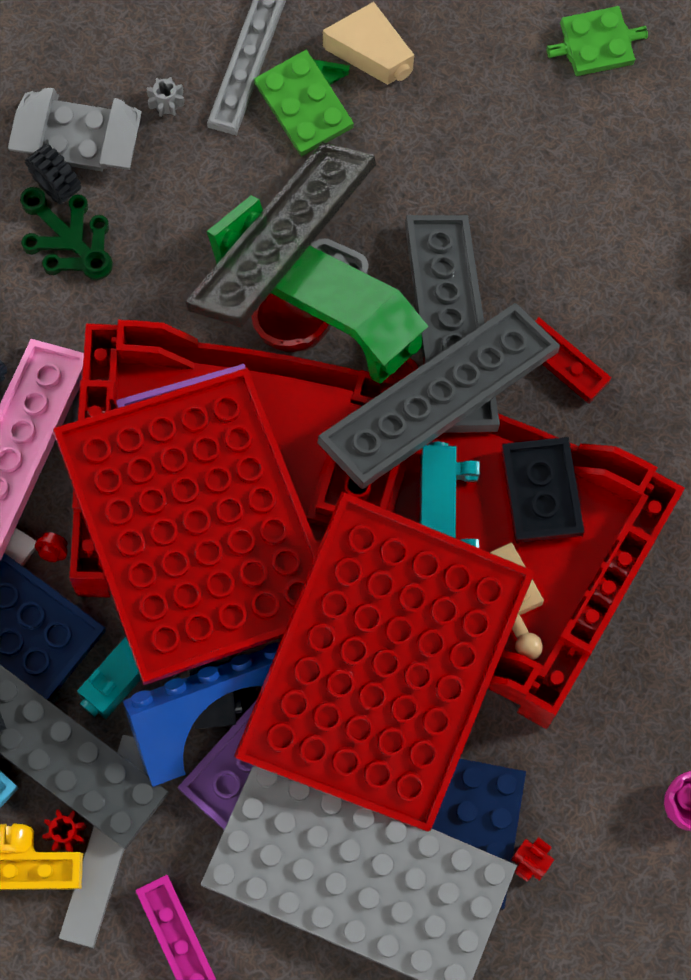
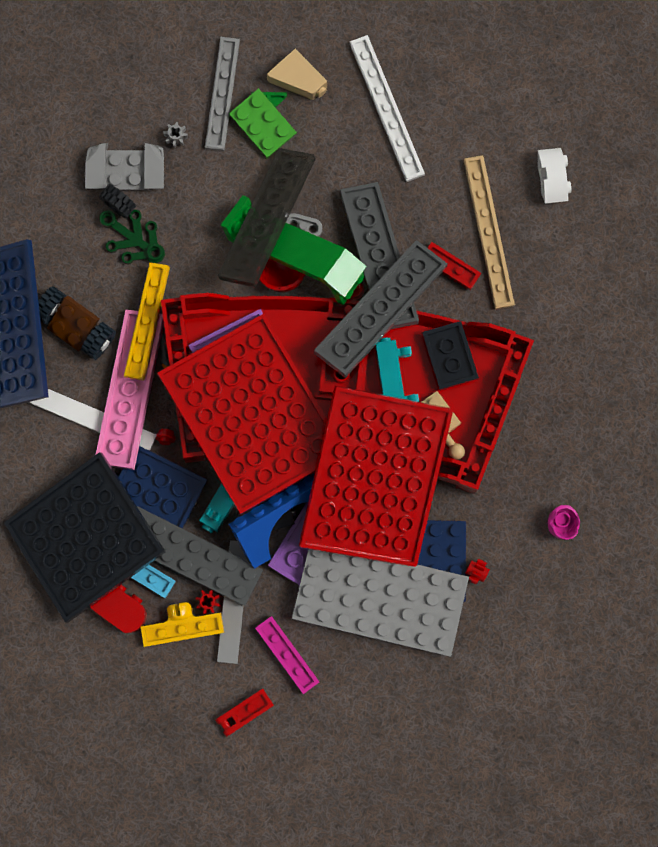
camera: 10 degrees left, 10 degrees up
(58, 362) = (146, 321): none -> yellow tile
(500, 116) = (387, 108): none -> white tile
(597, 41) = (440, 47): bright green plate -> none
(632, 322) = (489, 232): none -> tan tile

